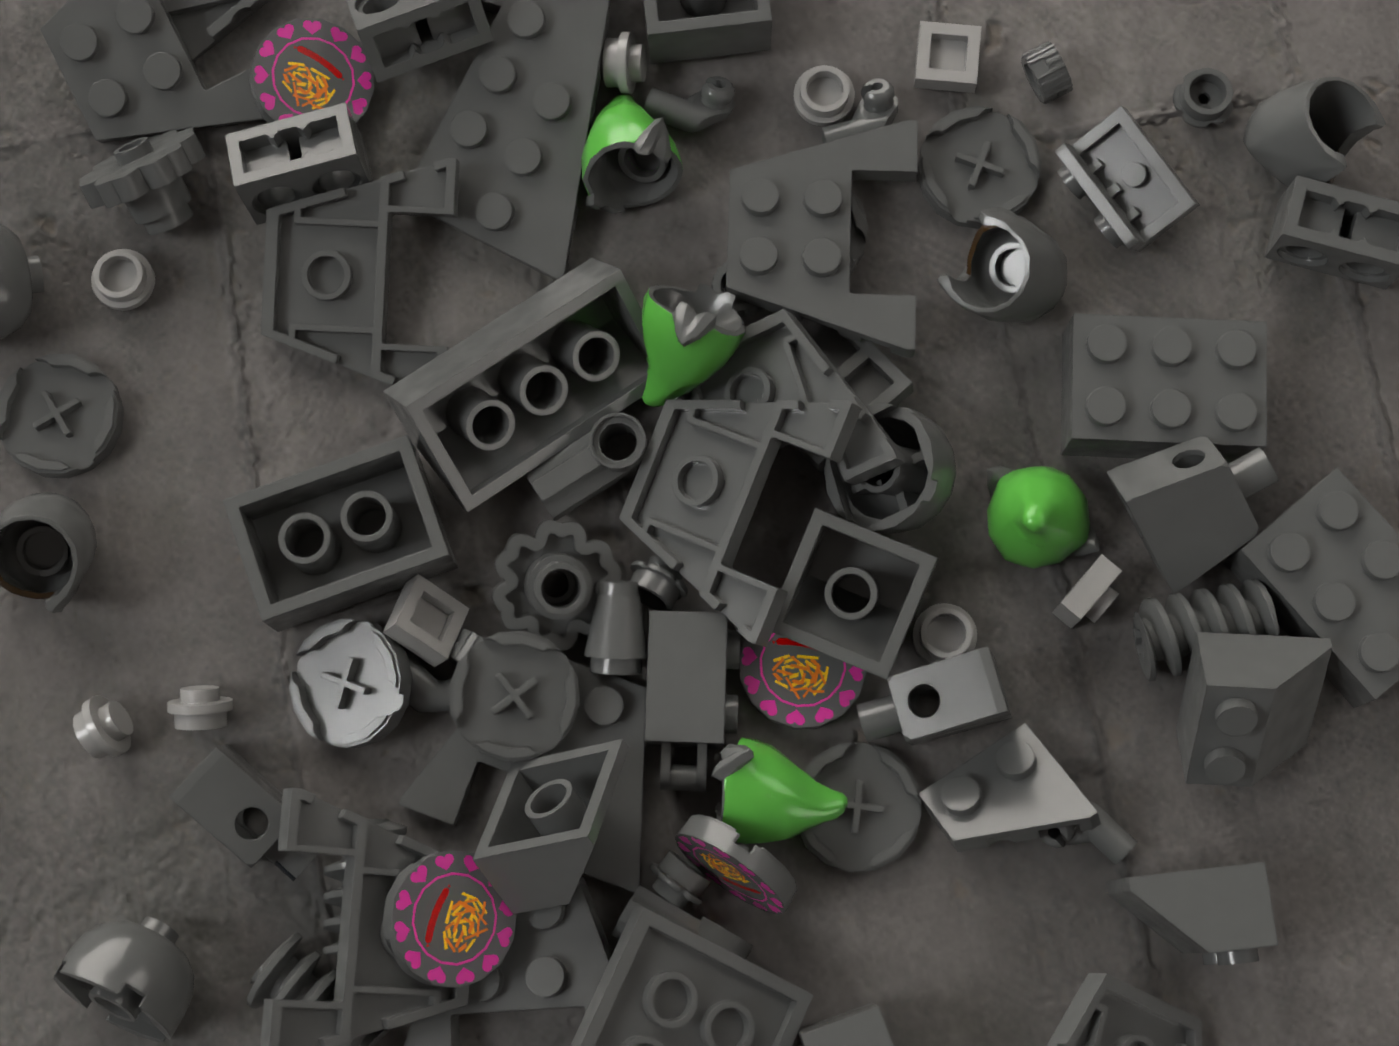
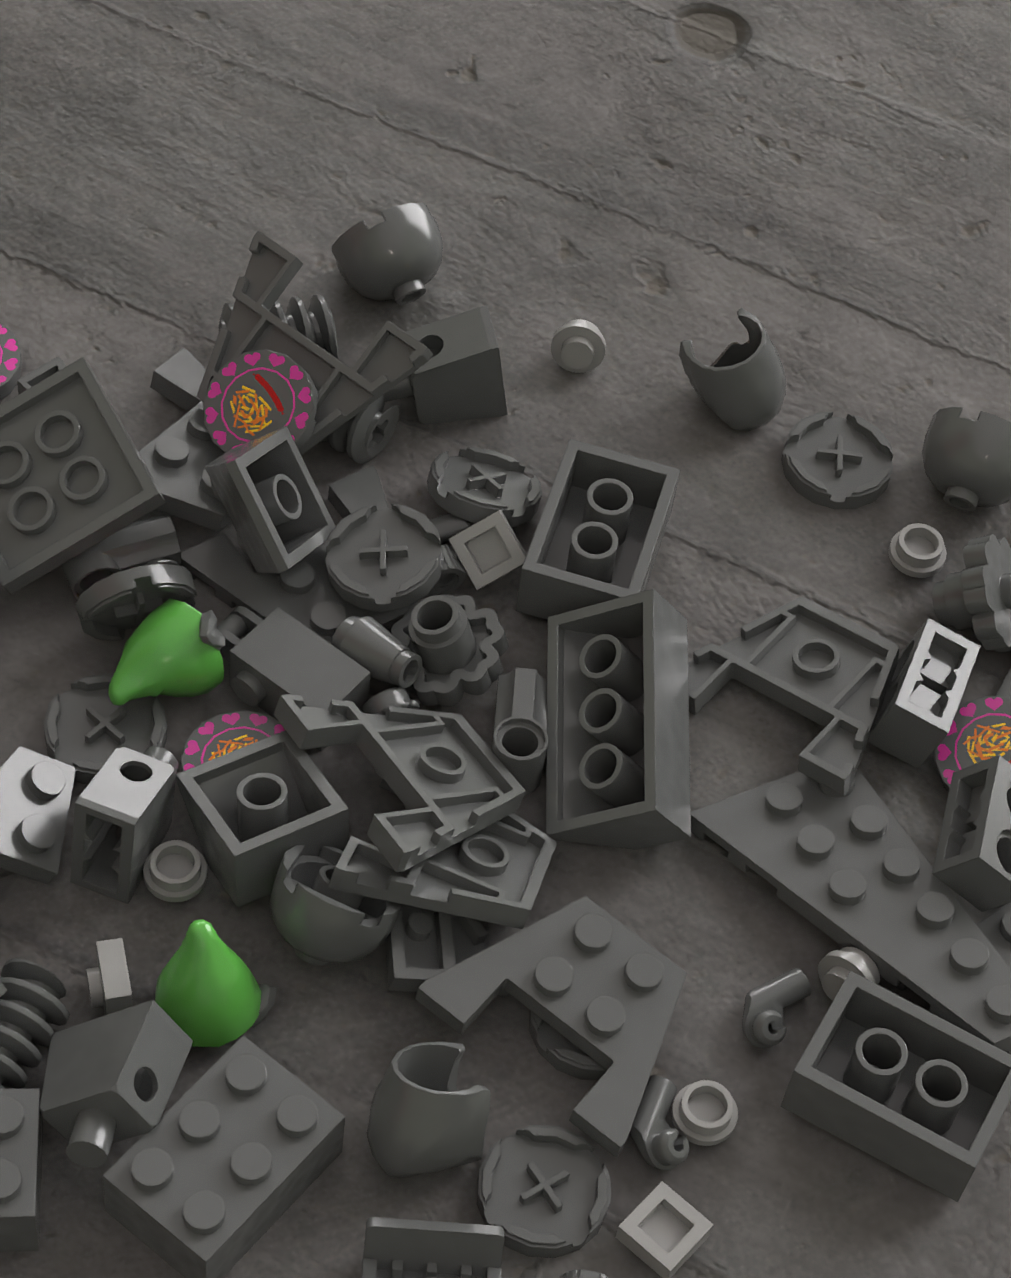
camera: 115 degrees right, 25 degrees down
(200, 708) = (543, 401): light grey plate -> none
(628, 158) = (764, 919): dark grey hat -> none
(686, 338) = (569, 833): bright green hat -> none

